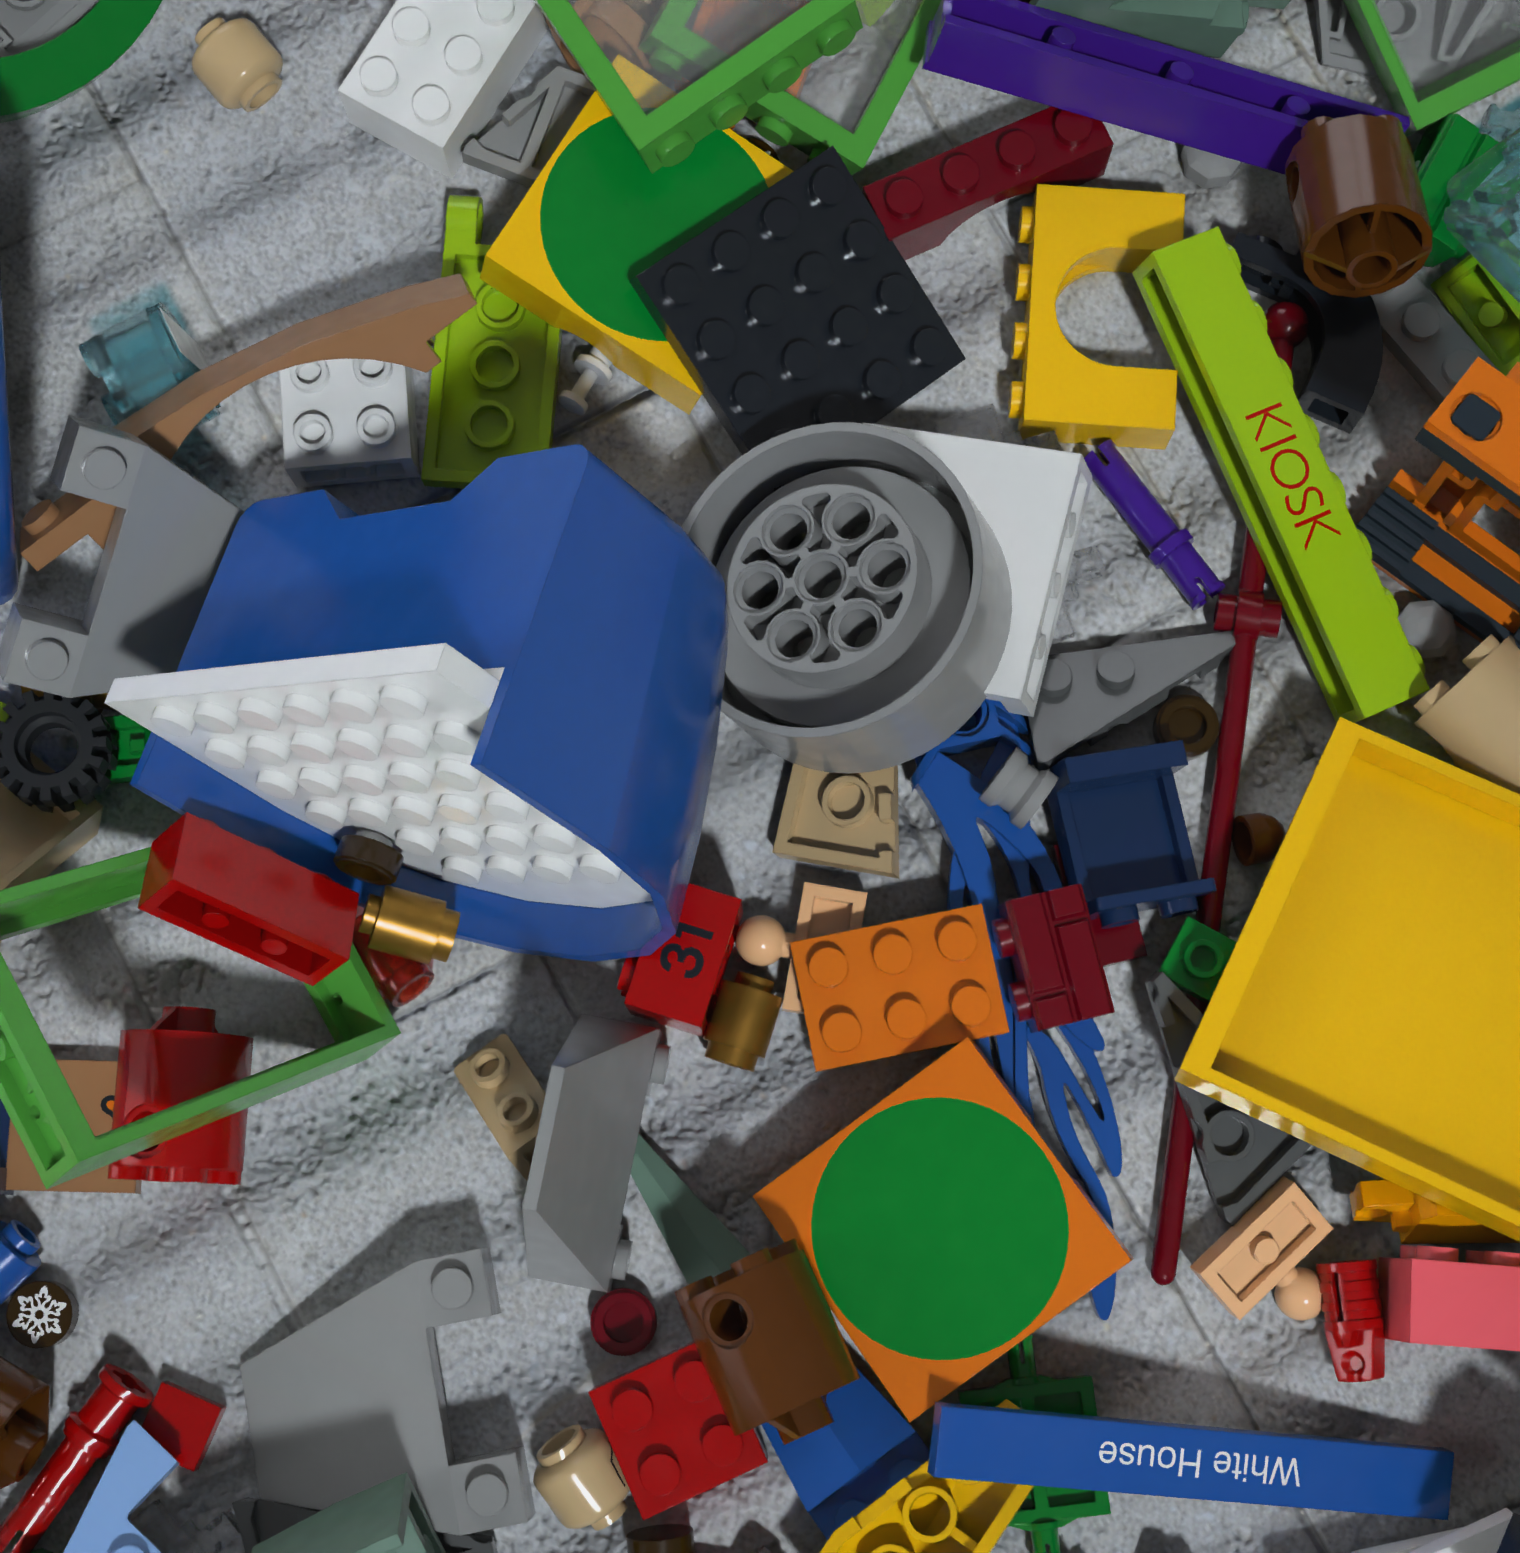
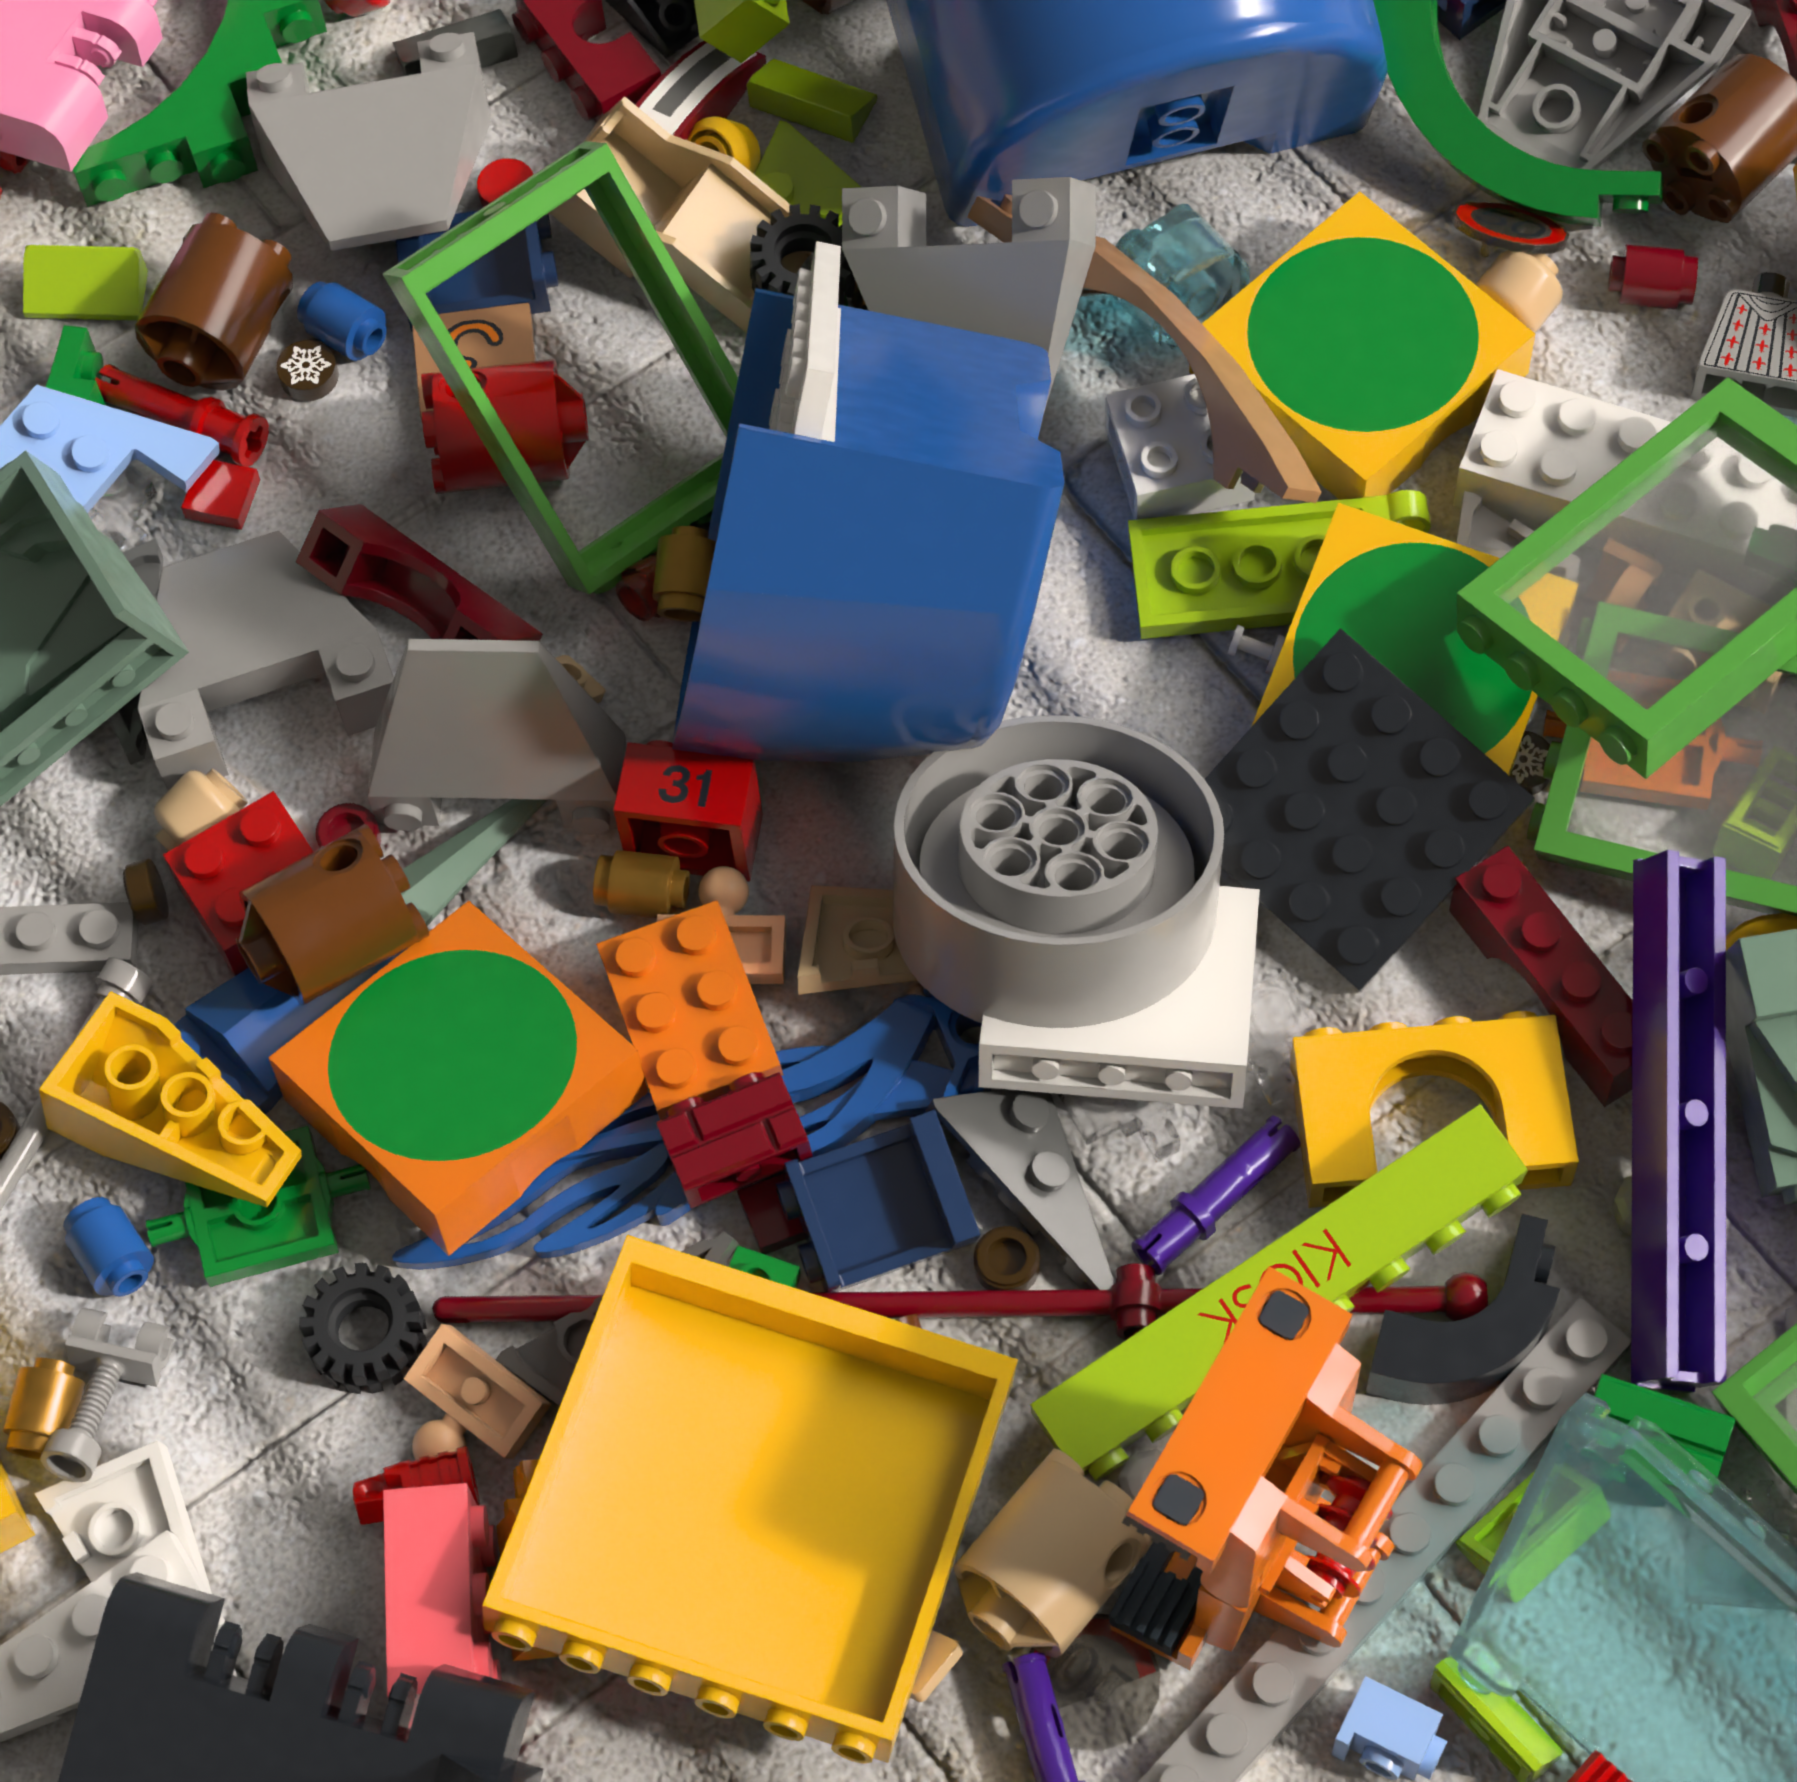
camera: 85 degrees right, 15 degrees down
(161, 54) = (1509, 228): none -> clear smoke piece
(185, 343) = (1213, 288): white sticker -> none
(249, 899) = (678, 421): red brick -> none
(272, 211) = (1369, 348): none -> green tile
(312, 1262) = (376, 562): none -> dark red arch
(1018, 788) = (901, 1080): light grey wheel -> none
(1189, 1461) = (257, 1336): blue tile -> none
(1219, 1363) = (354, 1291): none -> black tyre
(1357, 204) = (1586, 1307): reddish brown cylinder -> none

